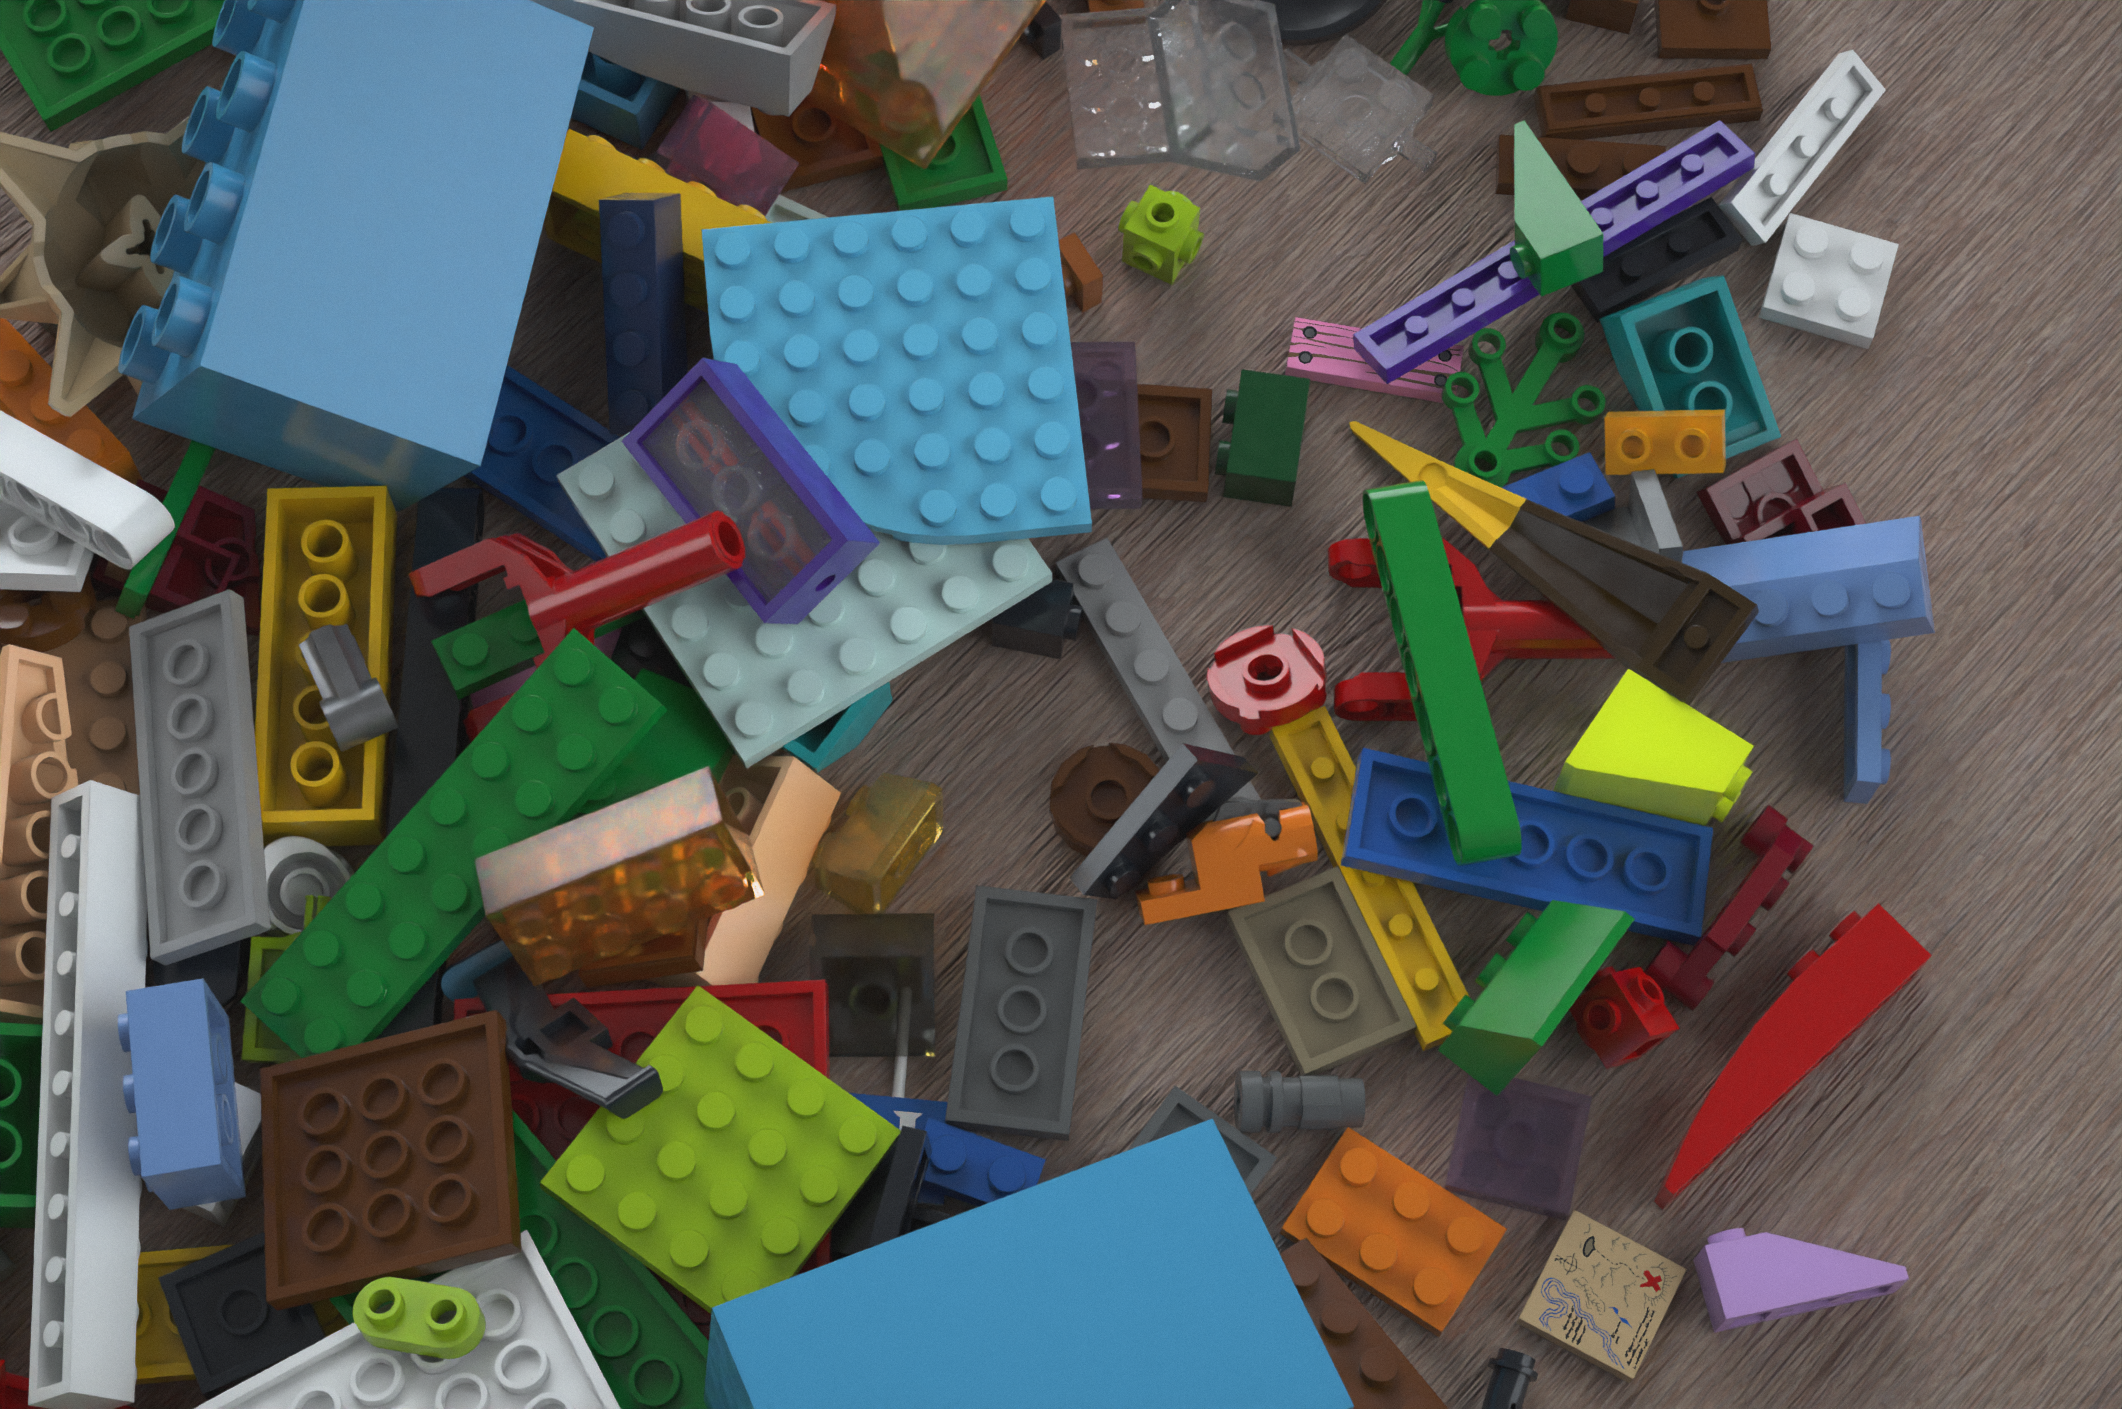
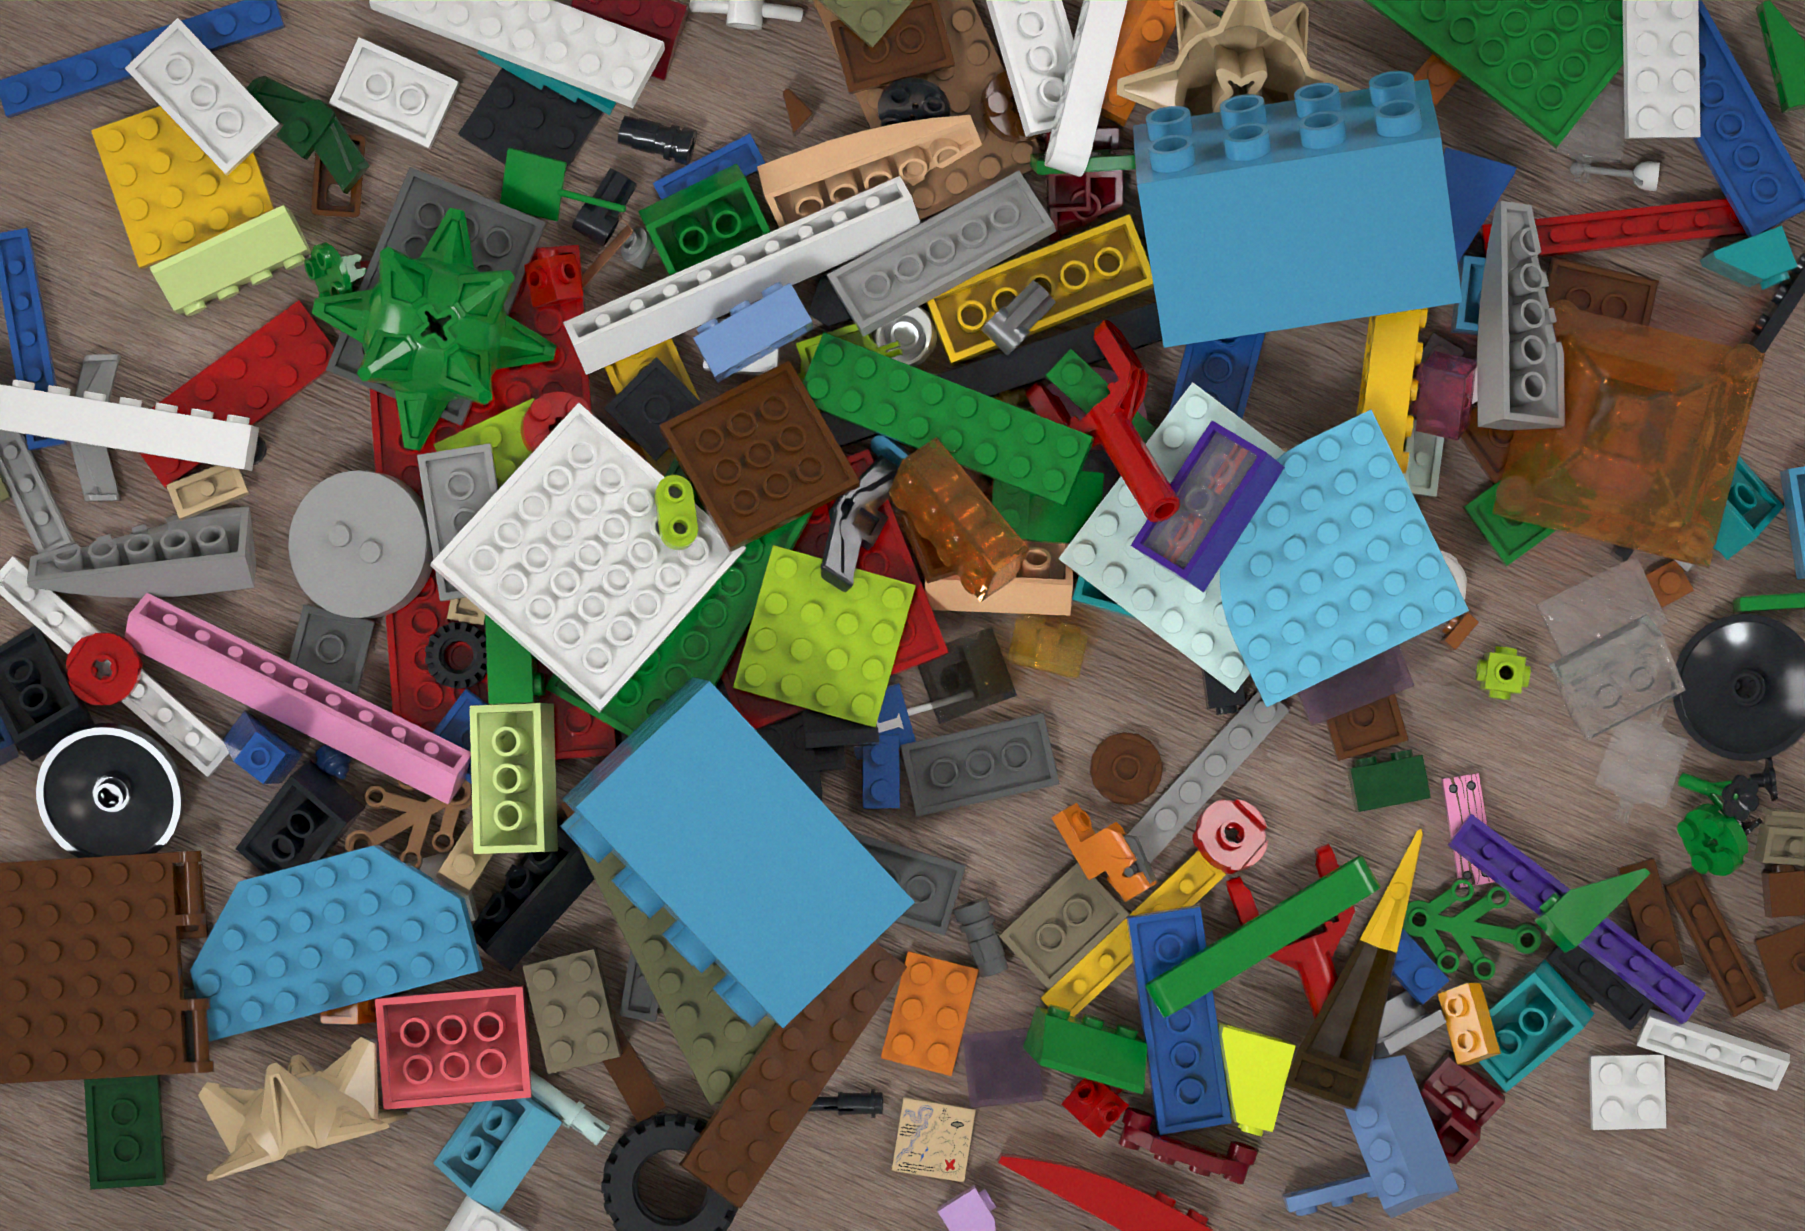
camera: 70 degrees right, 20 degrees up
(642, 302) = (1319, 389): dark blue brick -> none
(1170, 806) = (1115, 805): black wing -> none

